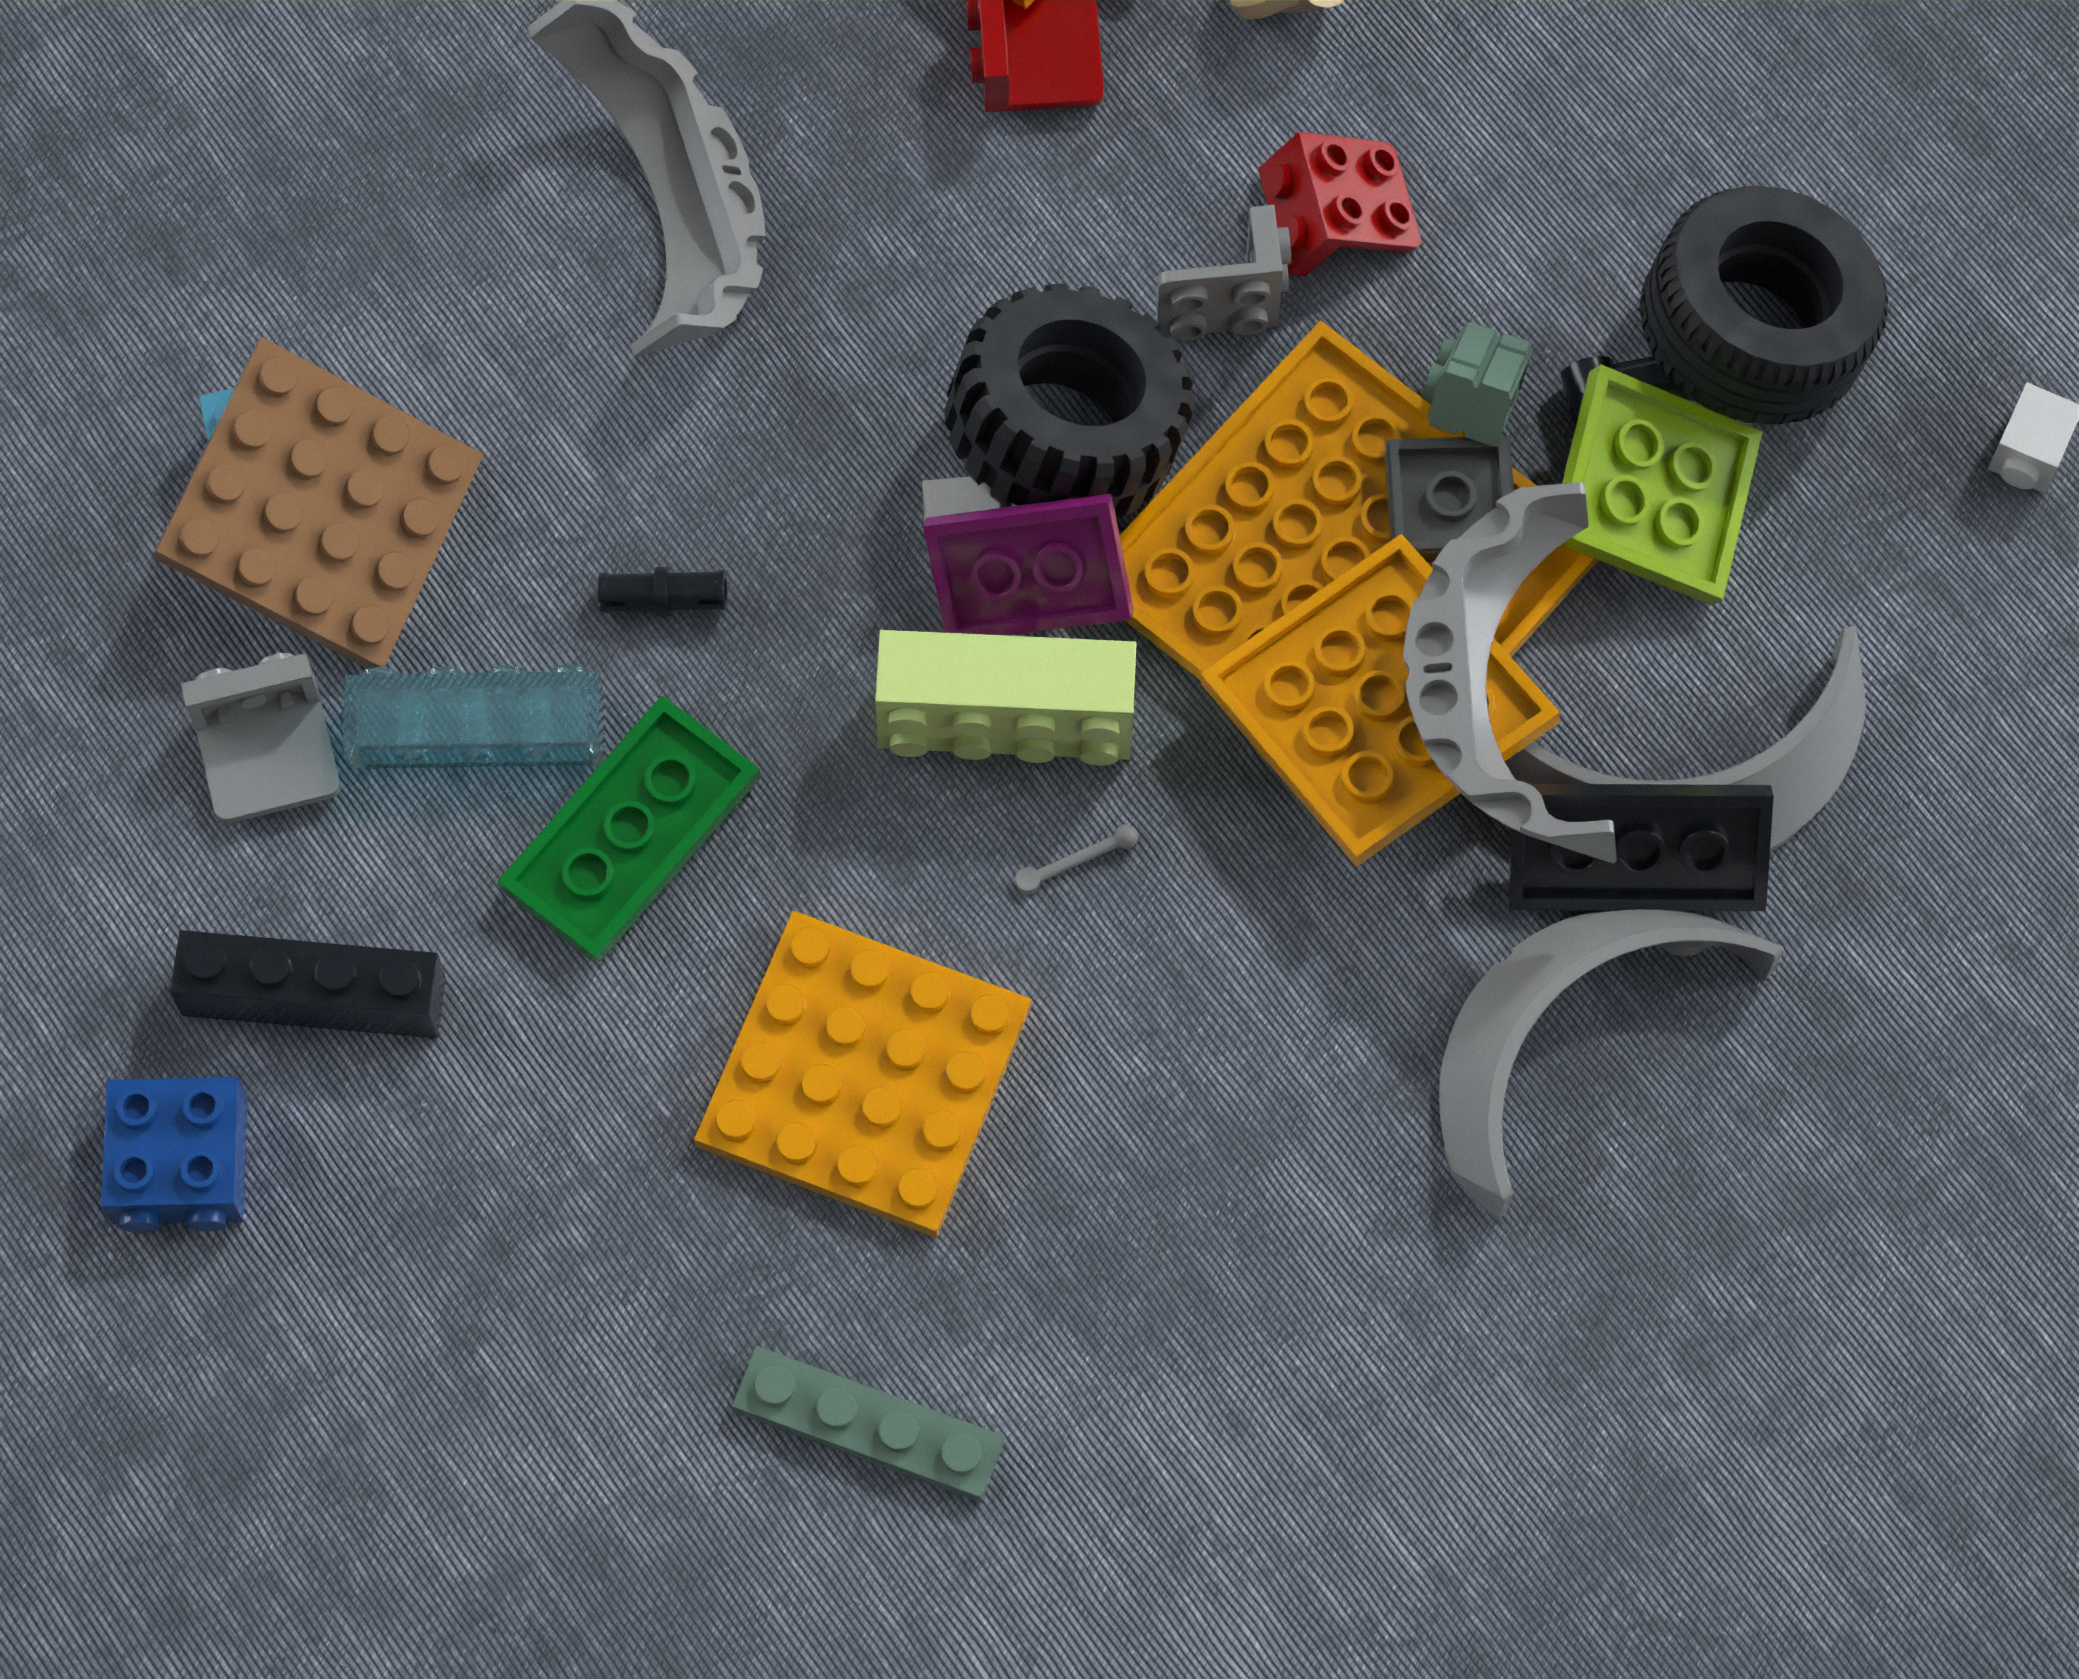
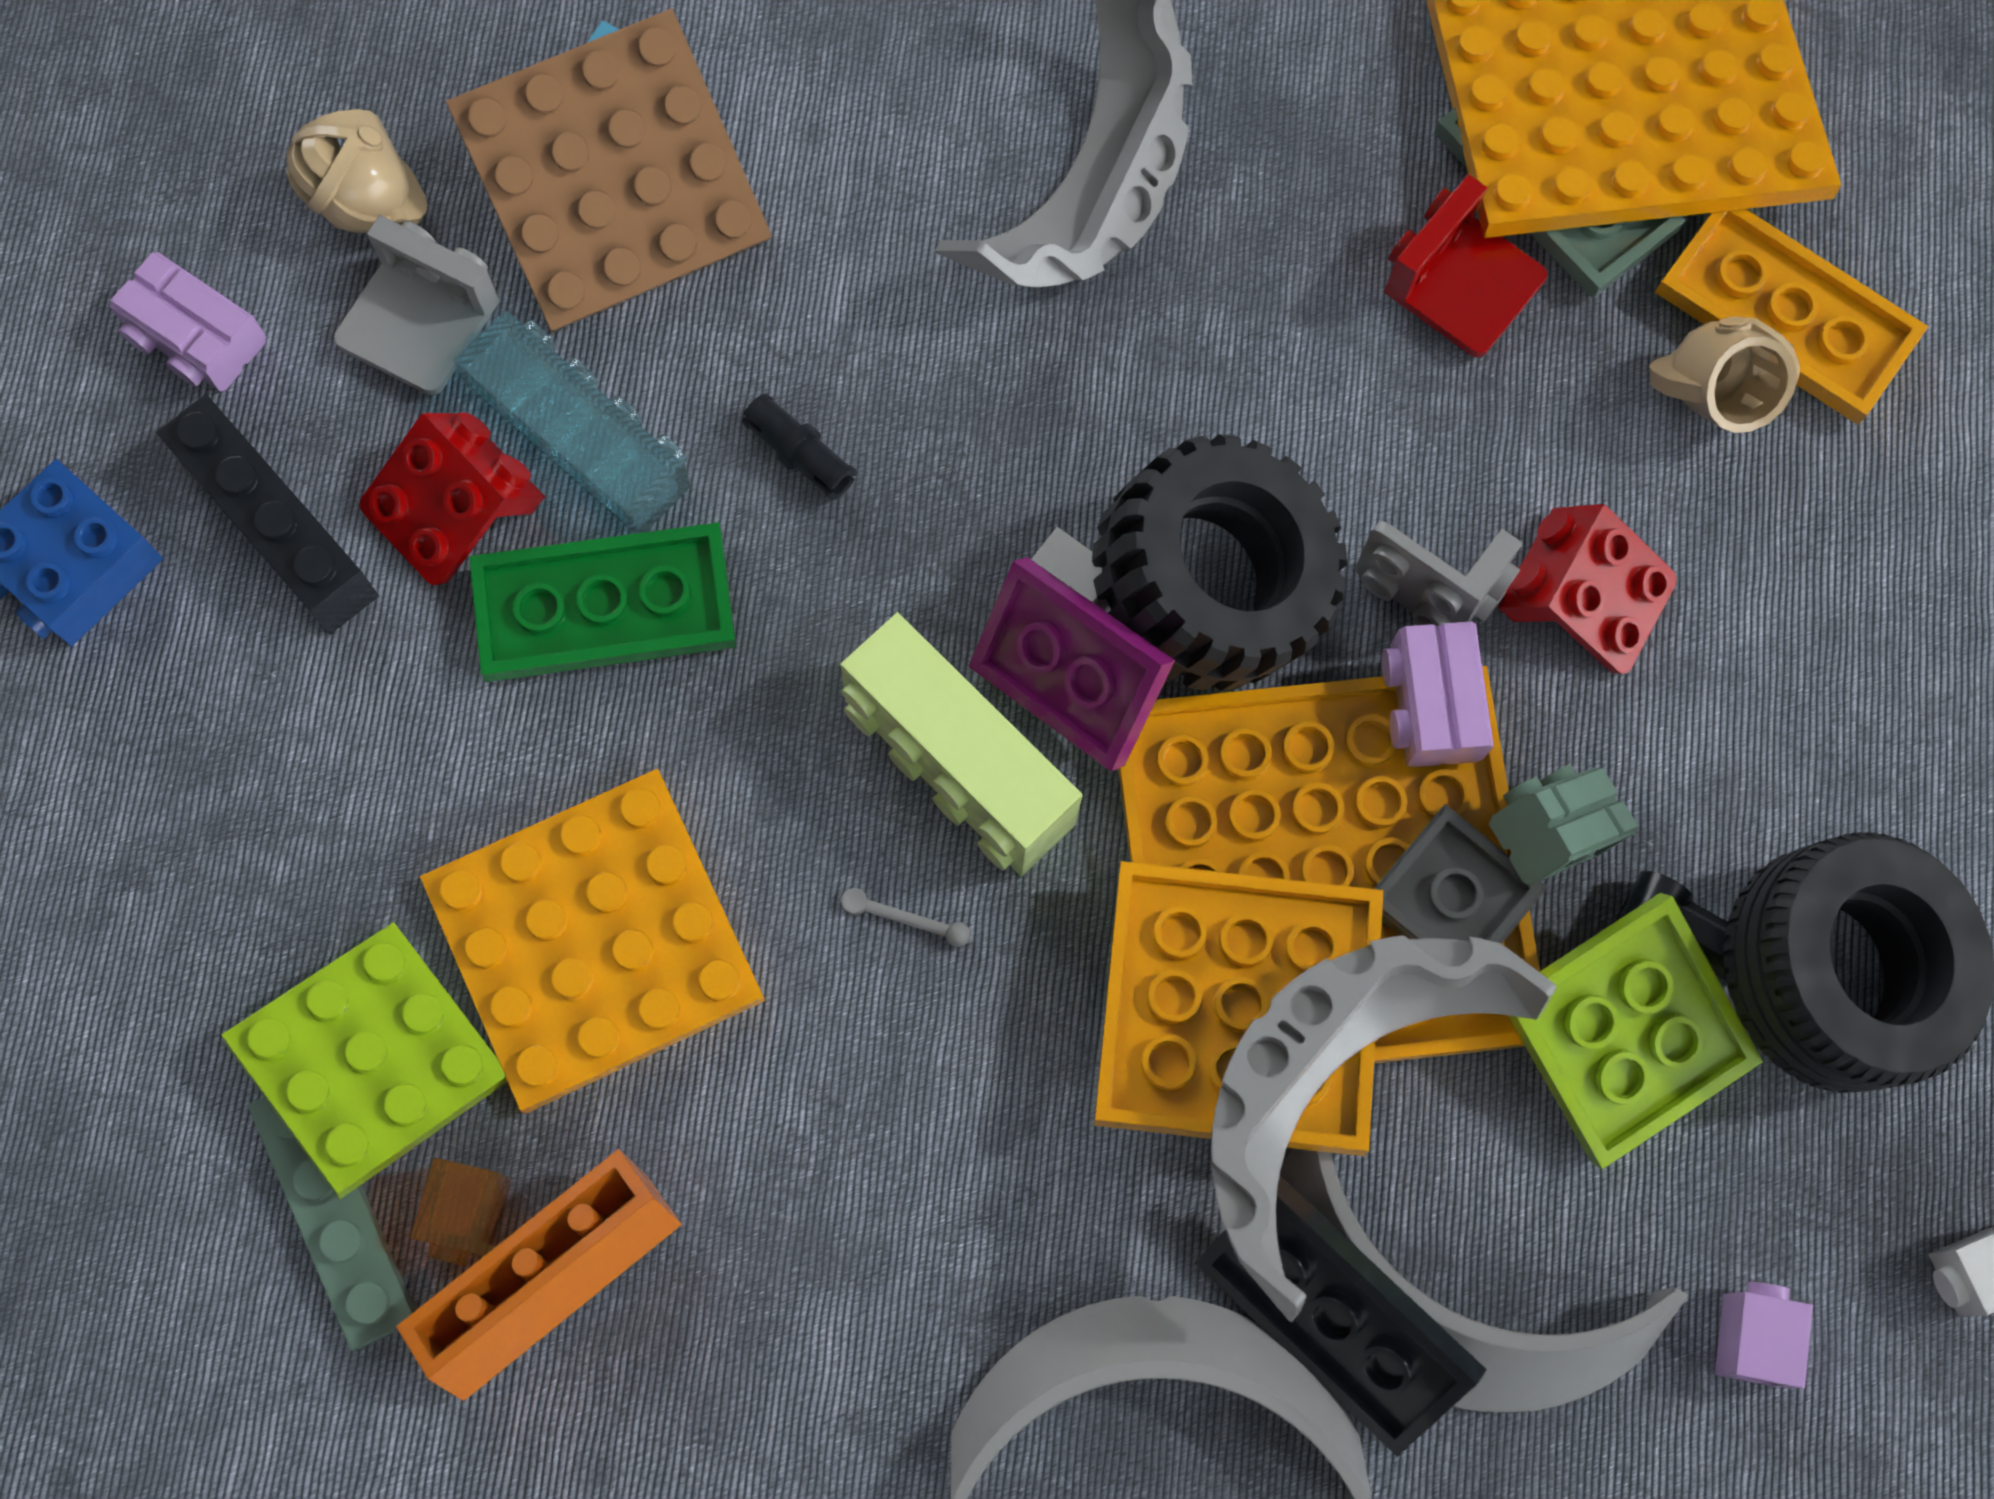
camera: 40 degrees right, 5 degrees up
(90, 903) = (187, 322): none -> lavender brick
(114, 679) = (354, 181): none -> tan helmet
(429, 856) = (446, 492): none -> red bracket
(788, 1294) = (365, 1059): none -> lime plate
(964, 1332) = (460, 1211): none -> clear orange brick
(1069, 1316) = (538, 1276): none -> orange brick
(1309, 366) = (1438, 694): none -> lavender brick
(1930, 616) = (1764, 1337): none -> lavender brick

